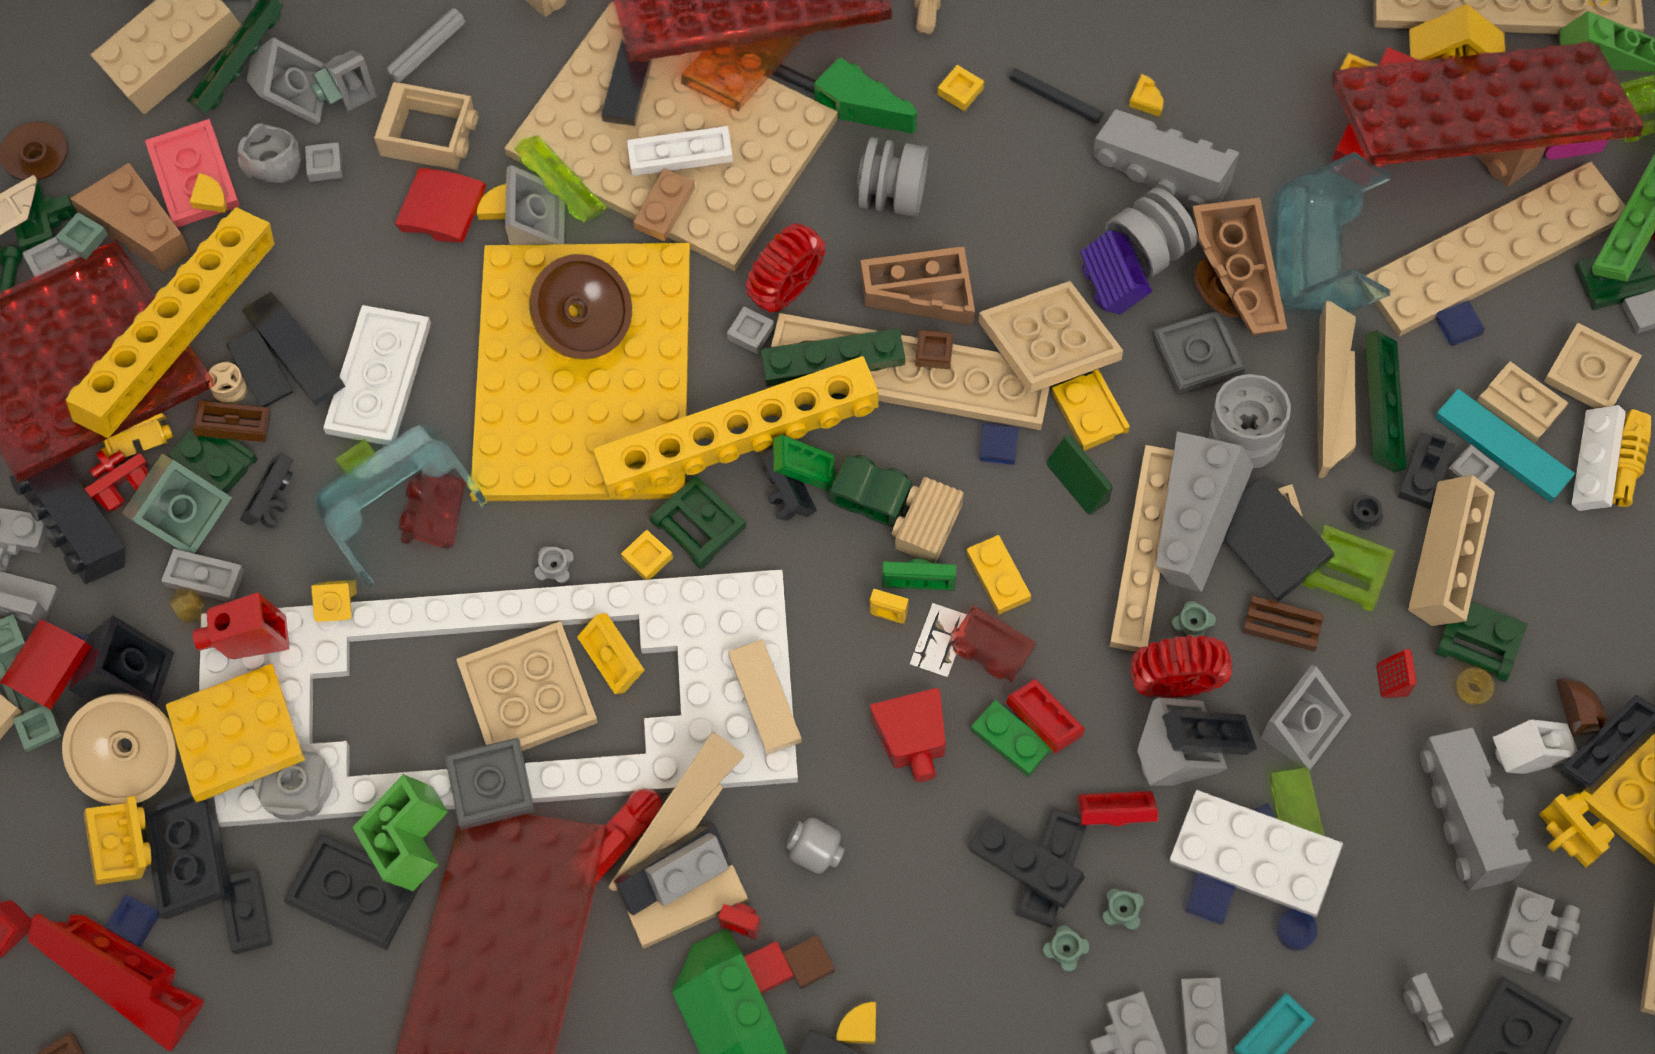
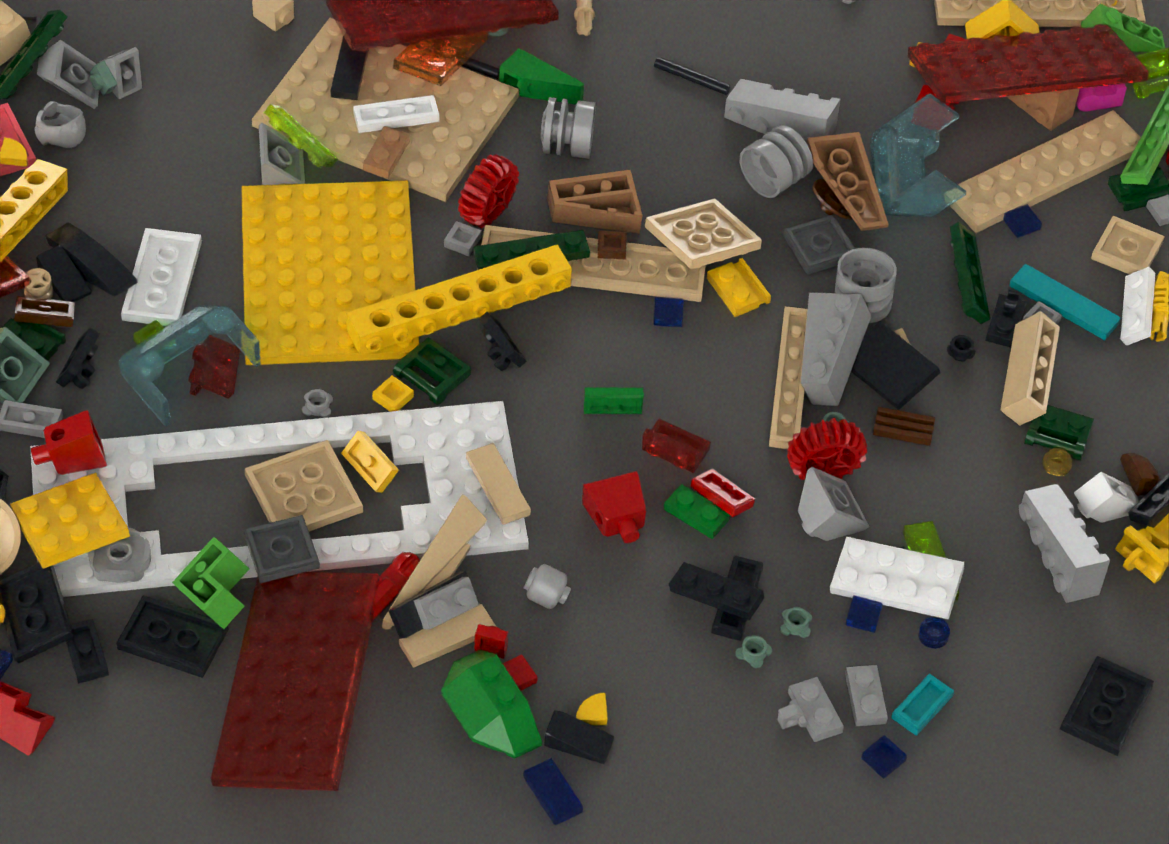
camera: 10 degrees left, 15 degrees down
(187, 605) = (18, 439): clear yellow plate -> none
(324, 161) = (104, 131): light grey plate -> none
(333, 600) = (140, 429): yellow bracket -> none
(410, 97) = (186, 87): tan window -> none
(425, 45) = (180, 51): light grey axle -> none
(440, 205) = (203, 159): red slope -> none
(493, 204) = (248, 158): yellow tile -> none
(597, 295) = (335, 209): reddish brown dish -> none
(803, 462) = (515, 324): green plate -> none
(809, 962) = (549, 669): reddish brown tile -> none
(870, 490) = (569, 344): dark green brick -> none
(889, 606) = (591, 422): yellow tile -> none
(928, 520) = (617, 361): tan brick -> none
(934, 647) = (629, 449): white sticker -> none
(960, 88) = (615, 70): yellow plate -> none
(998, 574) = (676, 400): yellow plate -> none
(1080, 475) = (735, 329): dark green slope -> none
(1114, 272) = (749, 189): dark purple brick -> none
(1117, 808) = (785, 553): red plate -> none
(1147, 97) = (763, 74): yellow tile -> none
(1209, 732) = (853, 492): black plate -> none
(1307, 720) = (927, 486): light grey slope -> none
(1335, 387) = (929, 264): tan wedge -> none
(1357, 559) = (955, 379): clear neon green plate -> none
(1397, 675) = (996, 456): red slope -> none
(1423, 1001) = (1039, 674): light grey plate -> none
(1522, 402) = (1076, 270): tan plate -> none
(1524, 932) = (1111, 626): light grey plate -> none

